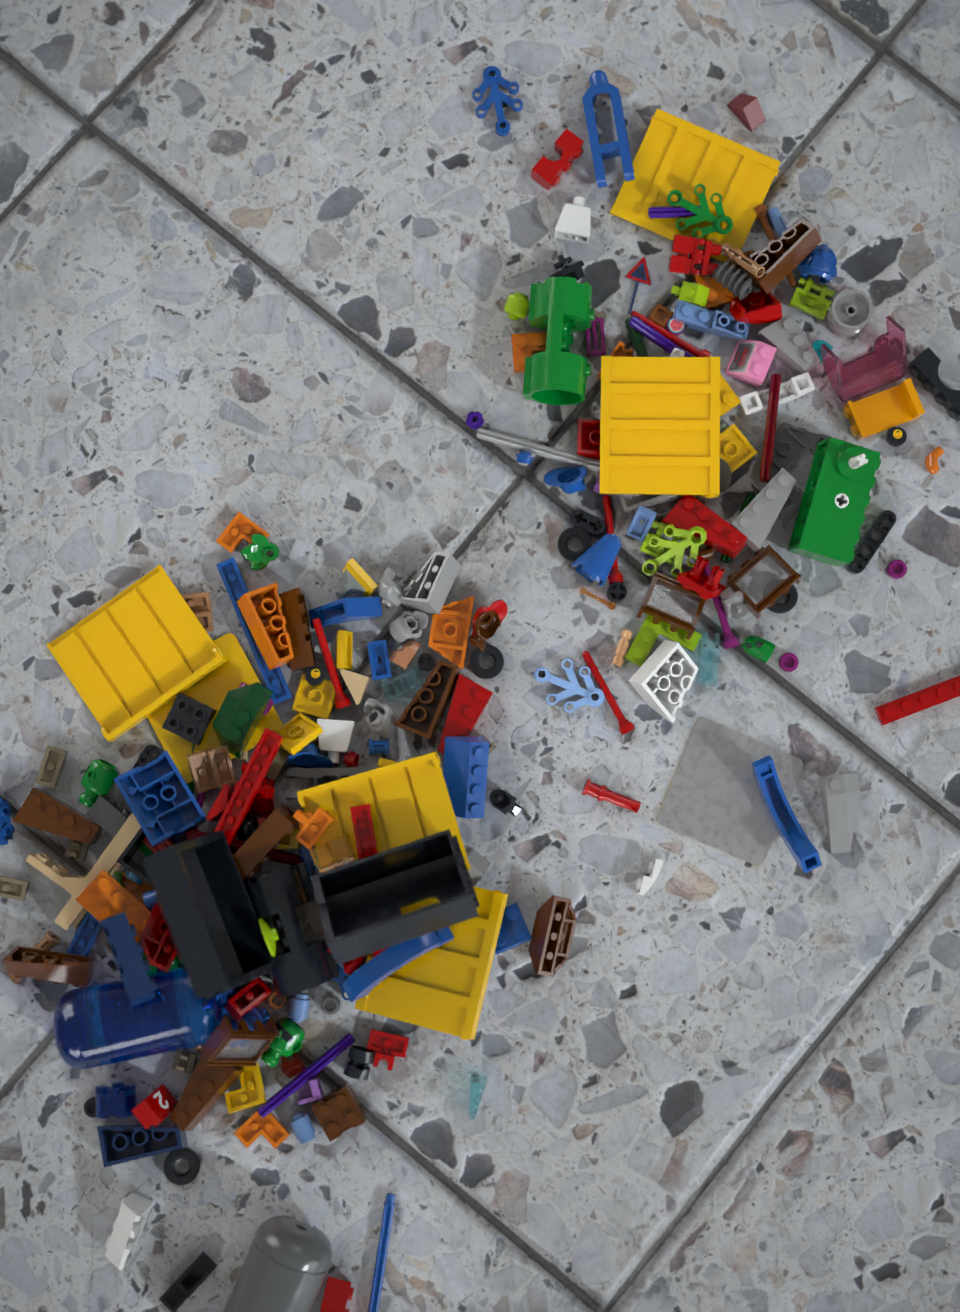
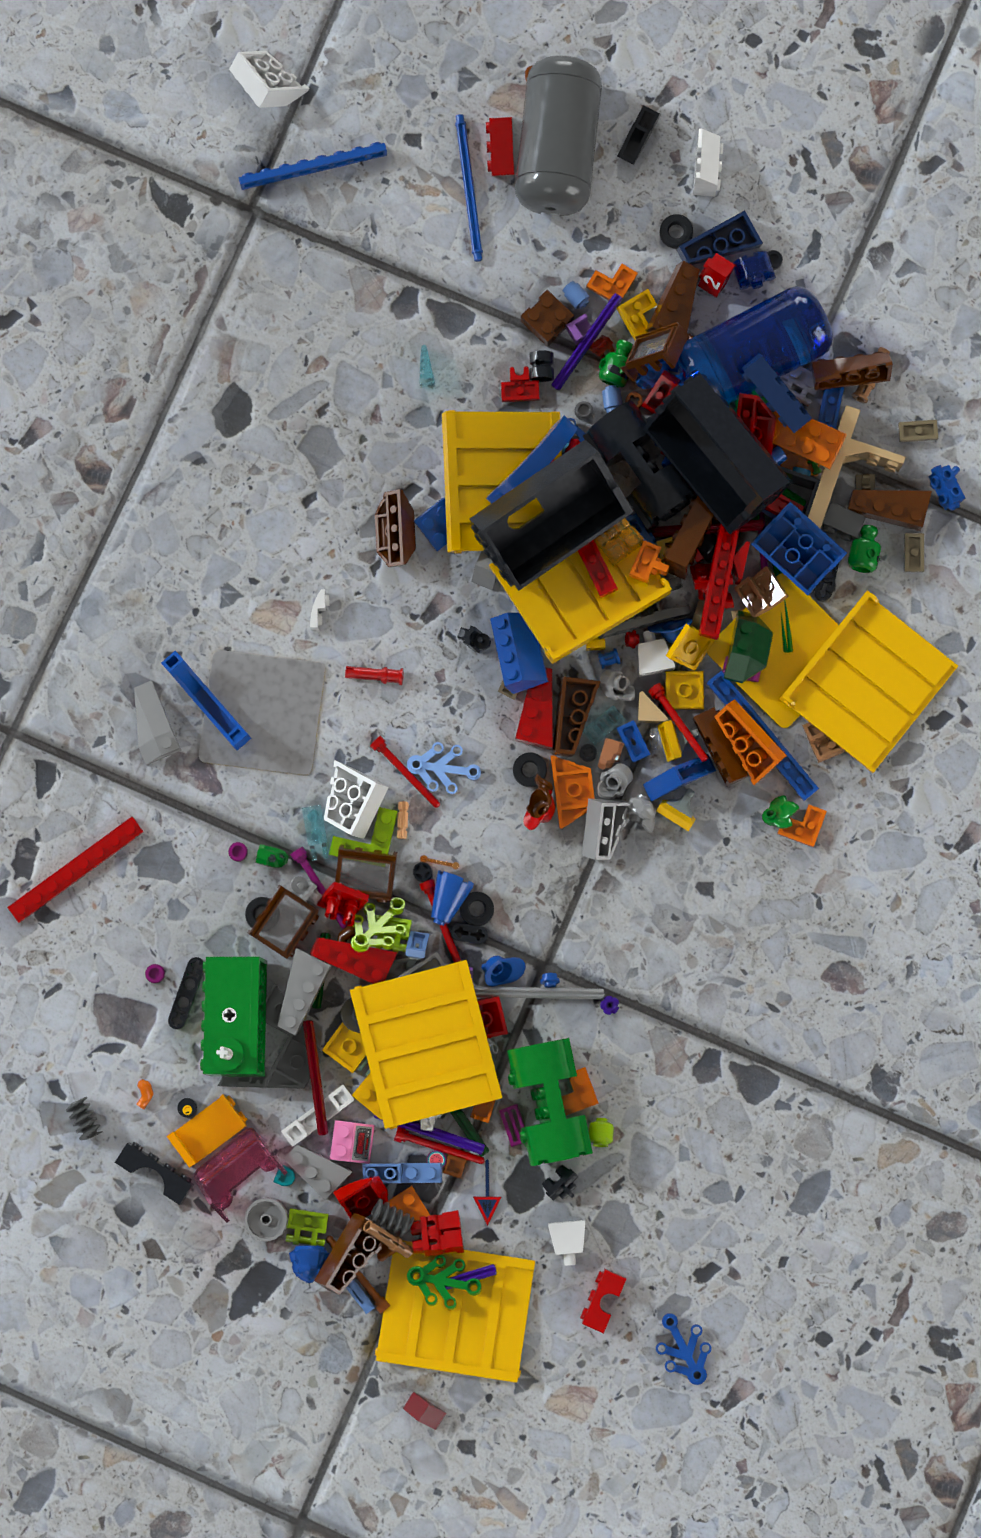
camera: 170 degrees right, 0 degrees up
(184, 1061) = (702, 322): dark tan tile -> none
(189, 719) = (797, 632): black brick -> none
(270, 936) = (656, 451): lime dish -> none
(315, 676) = (690, 707): black tile -> none
(598, 85) = (581, 1389): blue piece -> none
(692, 293) = (429, 1194): lime brick -> none

